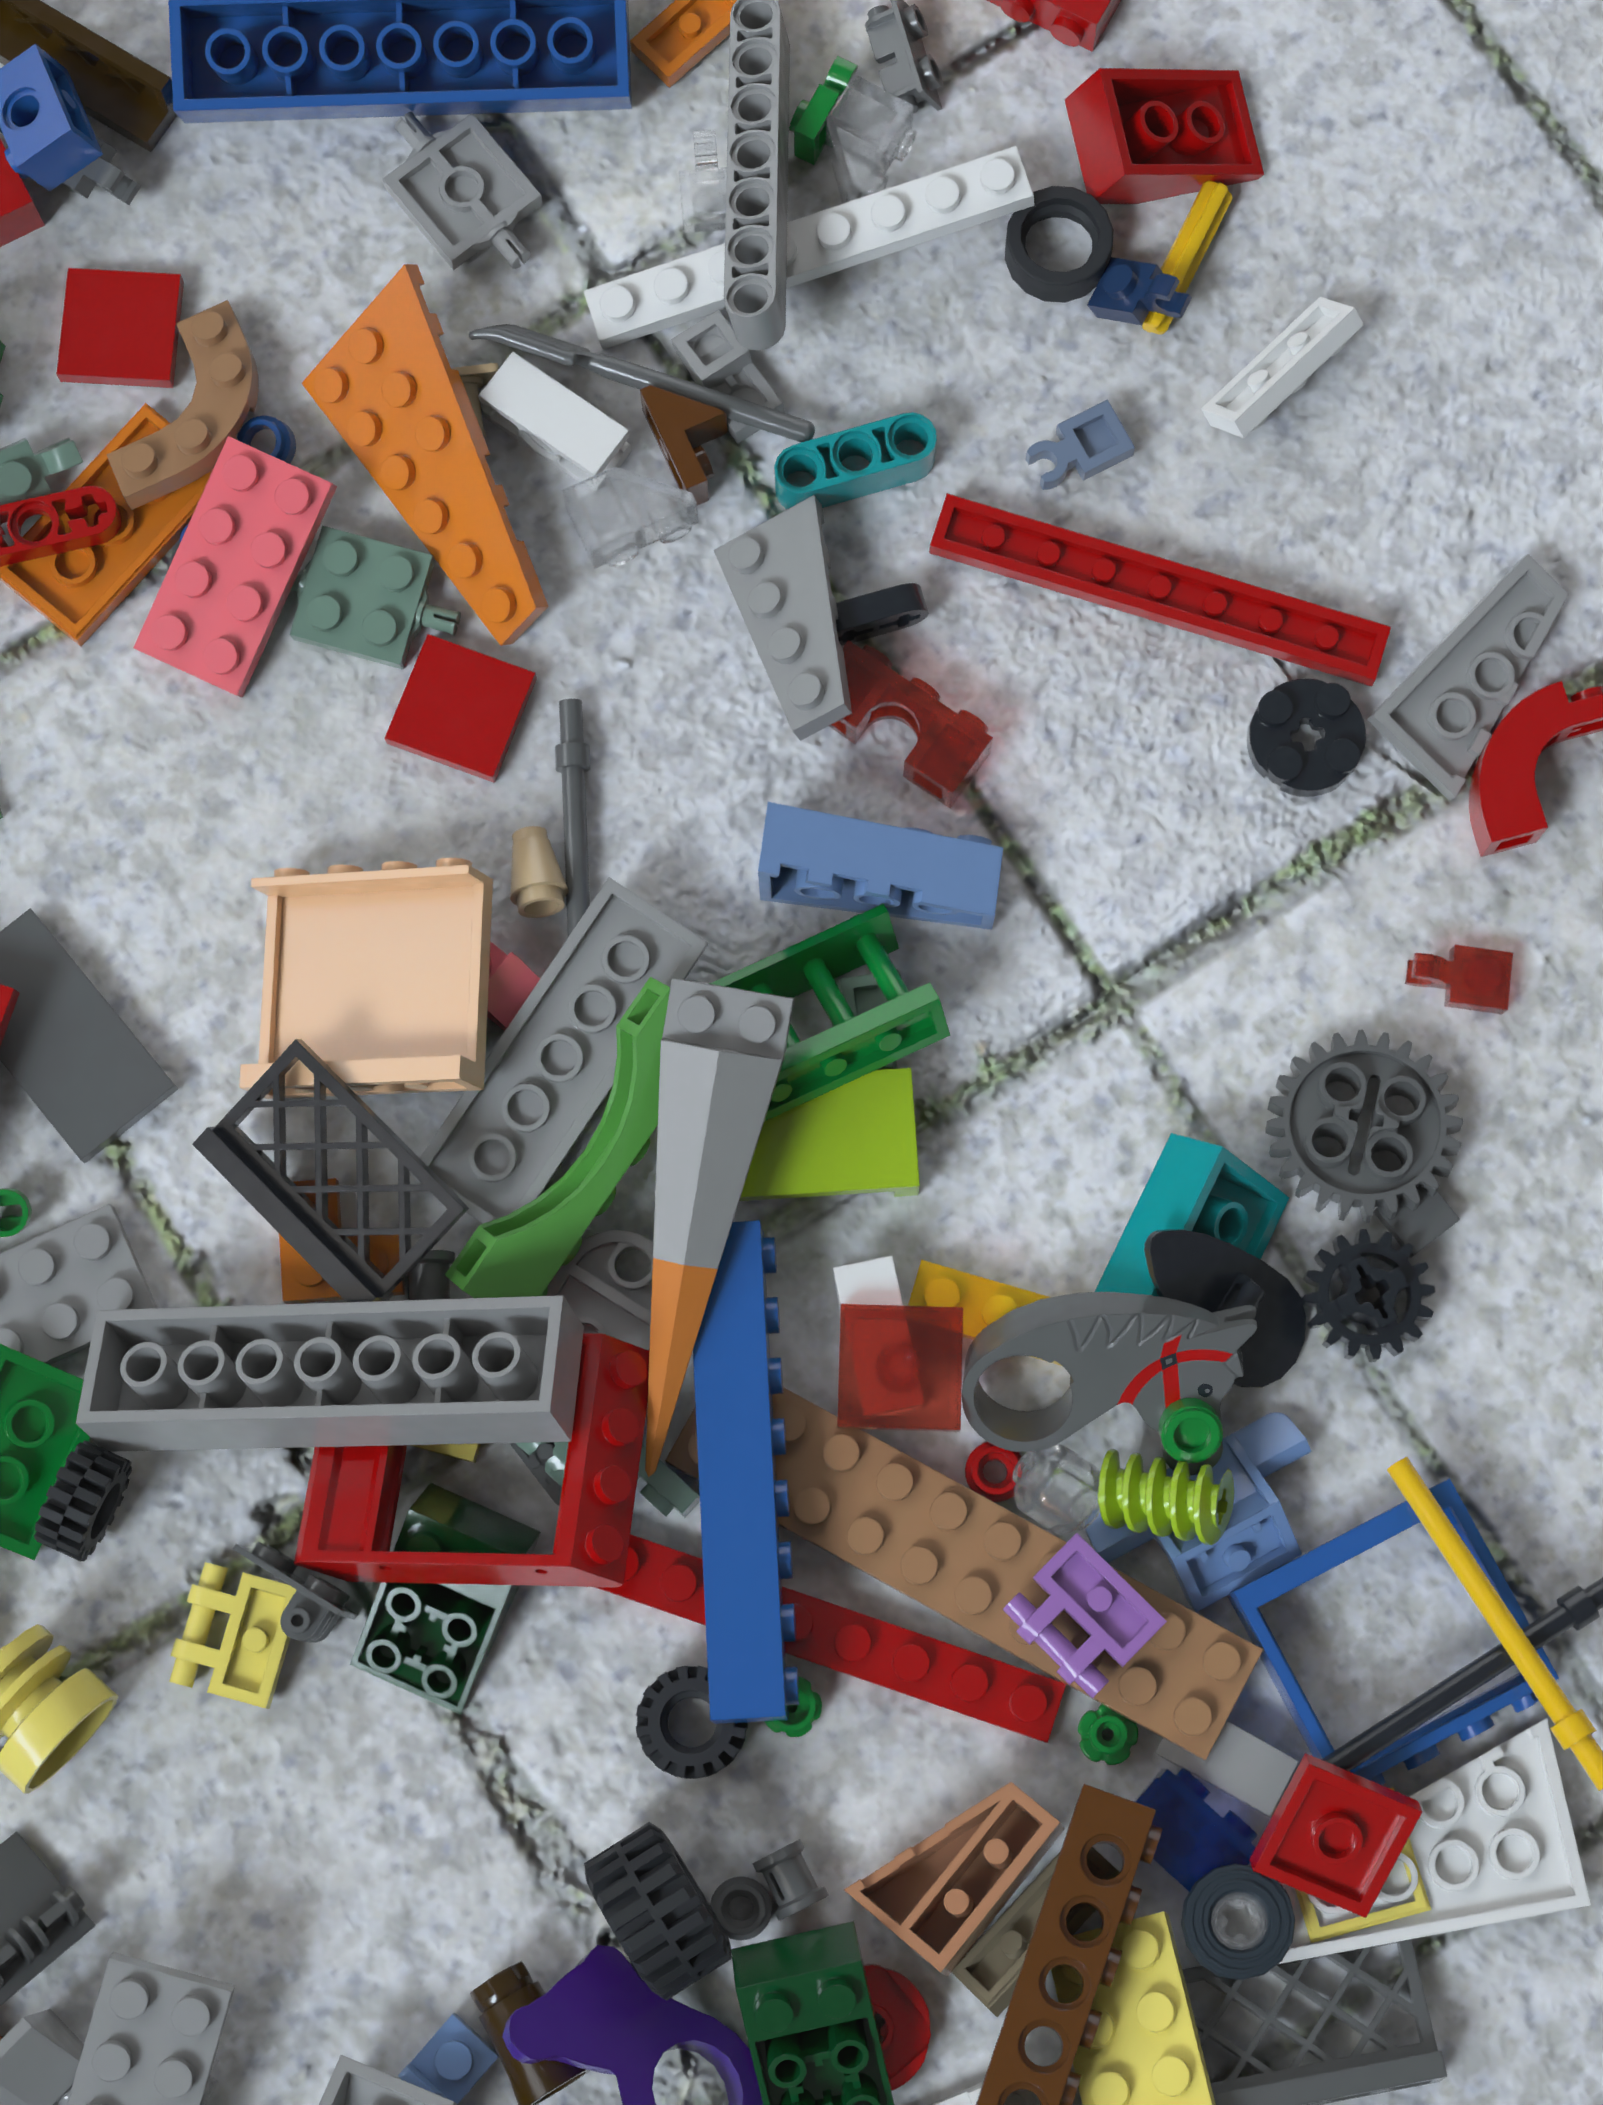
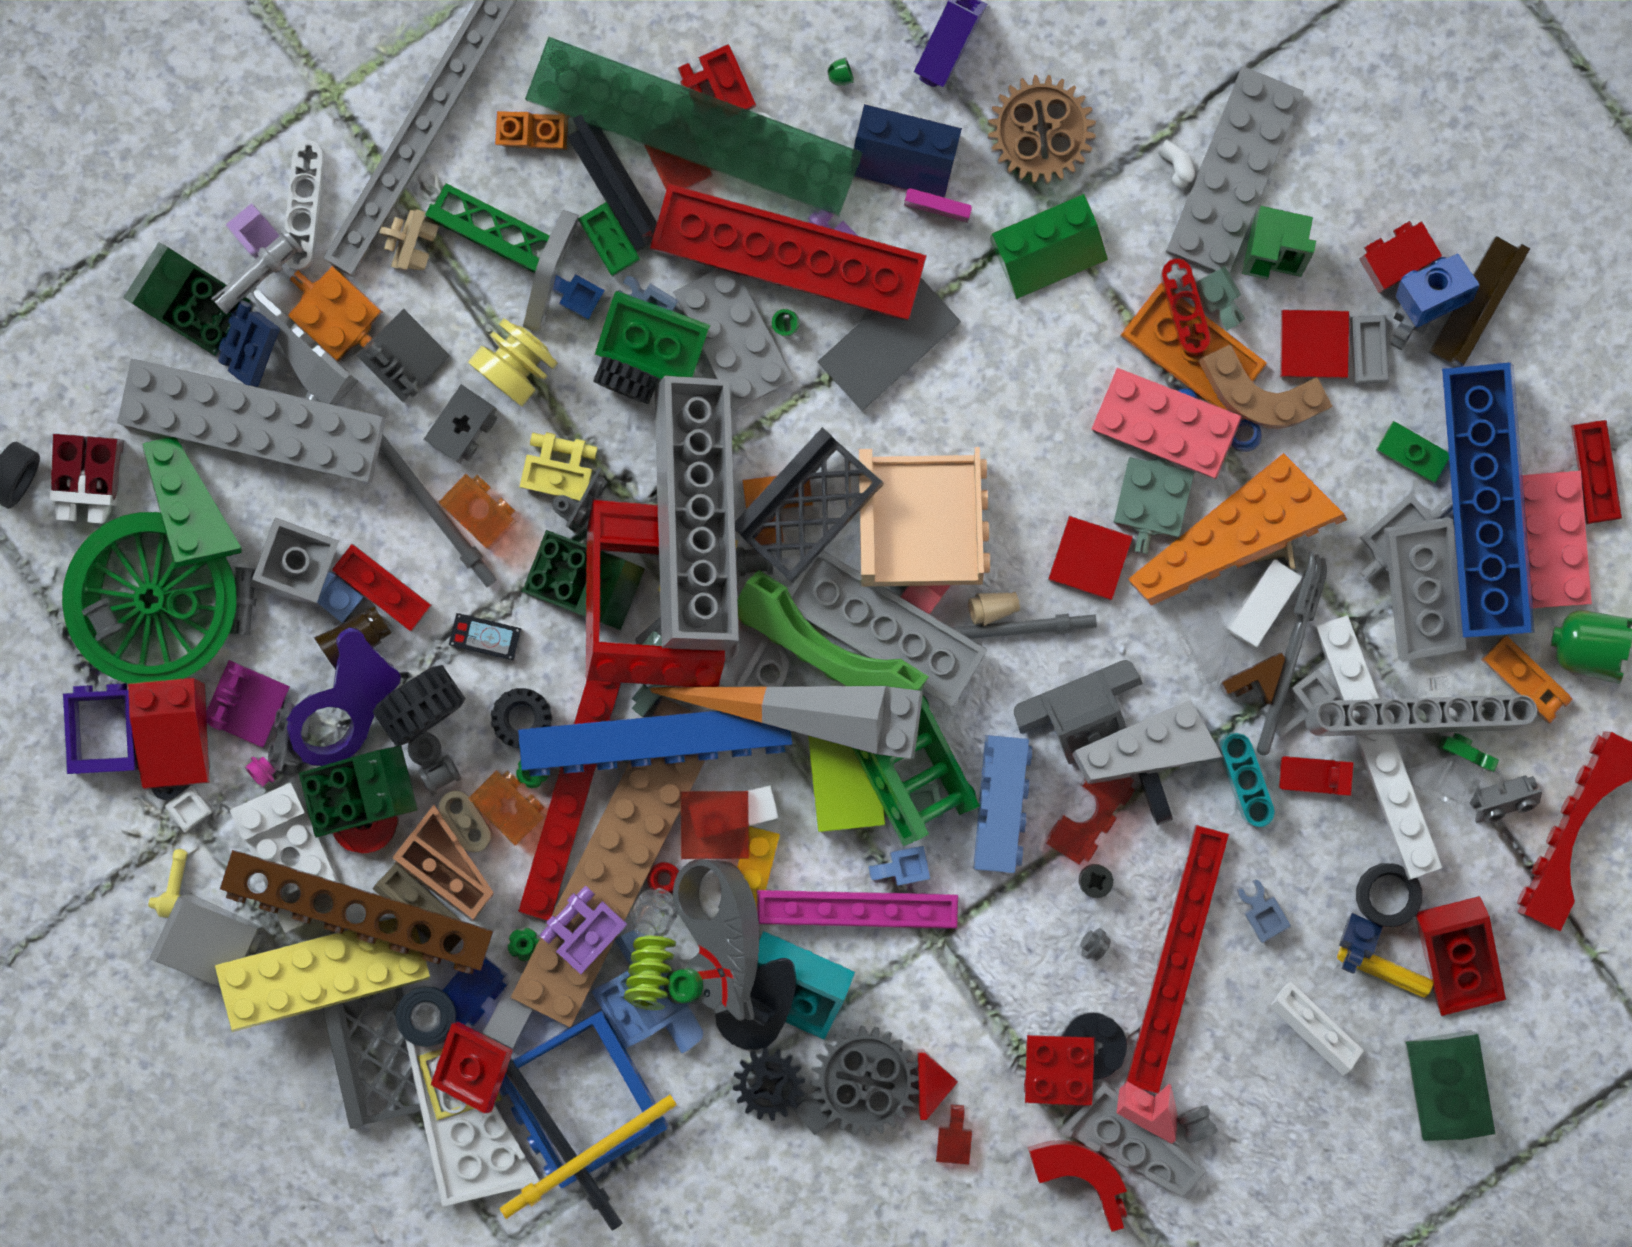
camera: 90 degrees right, 10 degrees up
(109, 1810) = (461, 406): none -> dark grey brick
(137, 240) = (1370, 349): none -> light grey tile
(315, 178) = (1413, 452): none -> green plate
(340, 1773) = (459, 502): none -> clear orange brick
(388, 1807) = (470, 555): none -> dark grey bar
(436, 1978) = (381, 587): none -> red plate
(539, 1785) = (485, 636): none -> tile
(544, 158) = (1425, 588): none -> light grey plate
(722, 731) = (1082, 708): none -> dark grey plate
(853, 345) = (1316, 775): none -> red bracket
(877, 1834) = (464, 822): none -> dark tan plate
(889, 1744) = (489, 801): none -> clear orange brick
(986, 1040) = (906, 865): none -> medium blue plate
(1018, 730) = (1088, 878): none -> pearl dark grey wheel
(1059, 1127) = (857, 909): none -> dark pink tile
(1131, 724) = (1095, 944): none -> dark grey plate
(1349, 790) = (1059, 1070): none -> red hinge
(1376, 1009) = (933, 1084): none -> red slope
(1383, 157) = (1450, 1086): none -> clear green slope
(1424, 638) = (1152, 1113): none -> coral slope
(1443, 566) = (1197, 1124): none -> dark grey wheel

